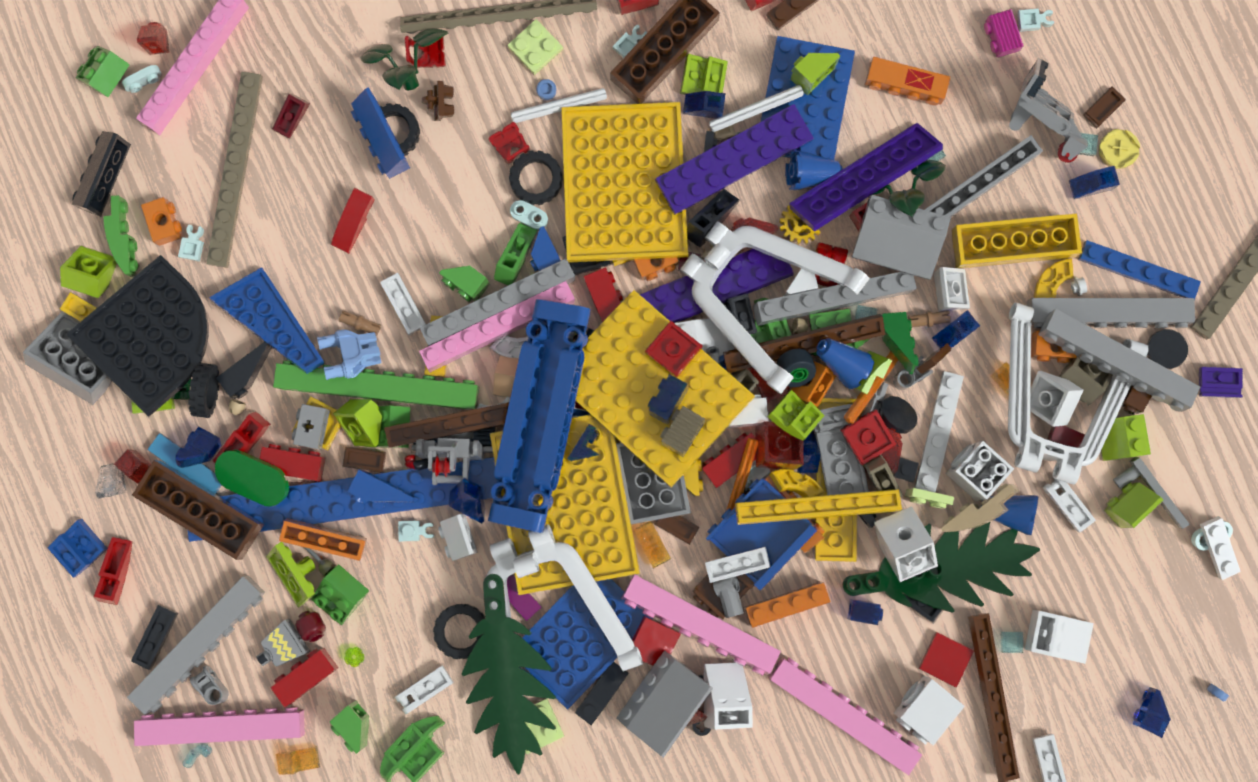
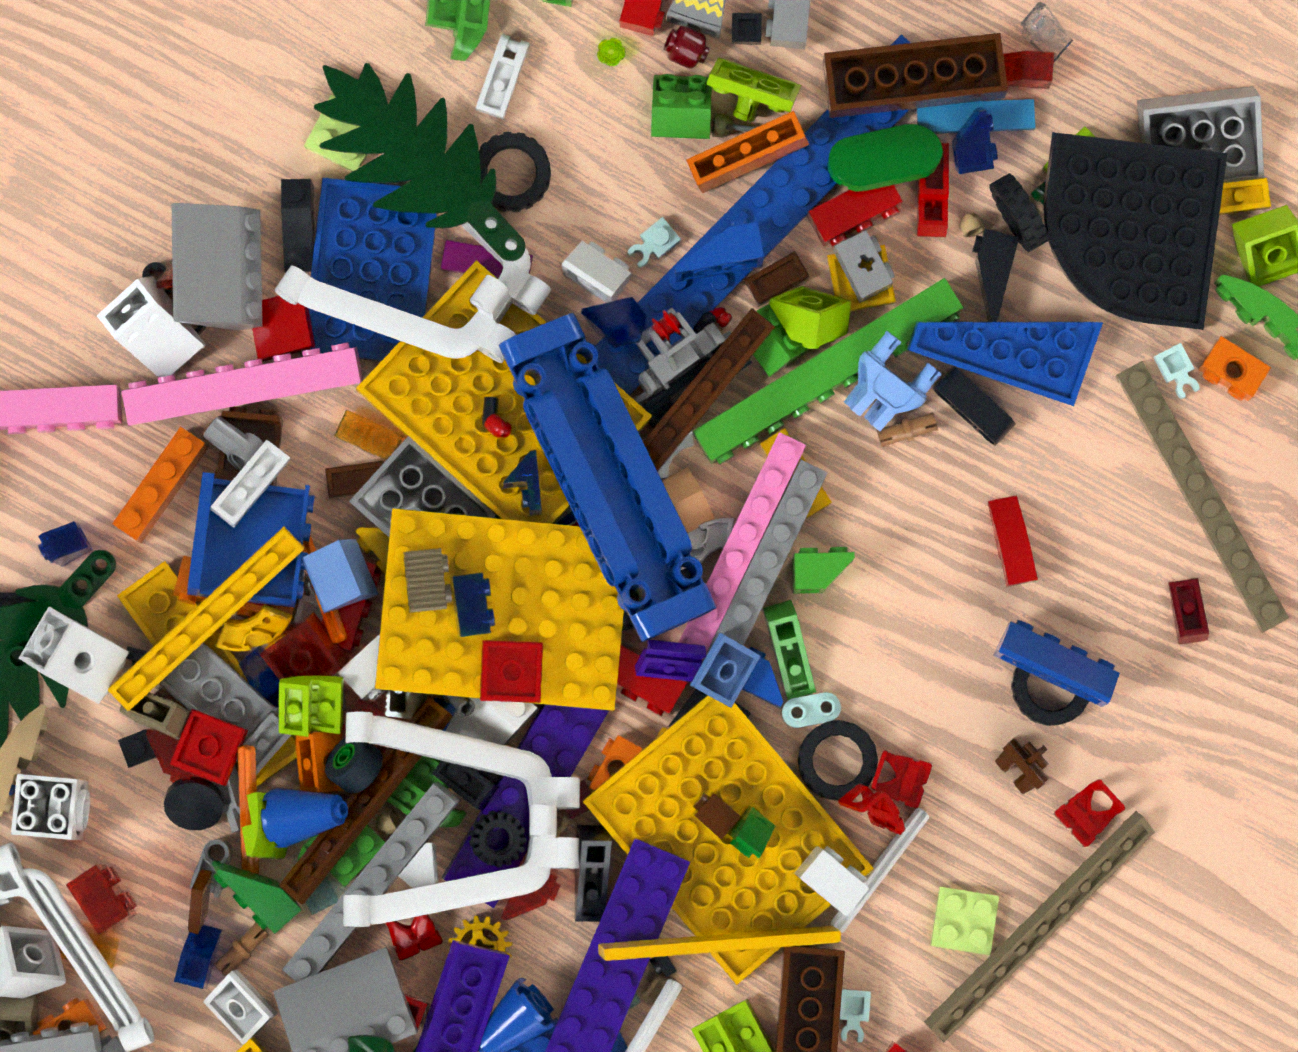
camera: 140 degrees right, 0 degrees up
(269, 611) = (746, 28): none -> black plate
(314, 308) = (974, 406): none -> black beam
(403, 303) = (874, 490): white plate -> none
(405, 74) = (1085, 748): dark green plant -> none
(535, 133) = (880, 808): none -> red piece
(546, 89) = (910, 878): medium blue tile -> none
(558, 264) = (725, 670): none -> medium blue slope
(578, 493) = (492, 420): none -> red arm
(583, 291) = (670, 660): none -> dark purple plate
(587, 112) = (831, 880): none -> white brick
(612, 166) = (751, 833): none -> green slope
(622, 193) = (715, 814): none -> reddish brown brick
(673, 125) = (719, 943): none -> yellow tile
(704, 104) = (705, 1003): clear blue slope -> none
(727, 475) = (339, 575): none -> medium blue slope
(748, 258) = (484, 826): none -> black tyre
(922, 496) = (96, 727): yellowish green plate -> none
(939, 432) = (131, 823): white plate -> none
(986, 400) = (102, 898): none -> clear red brick

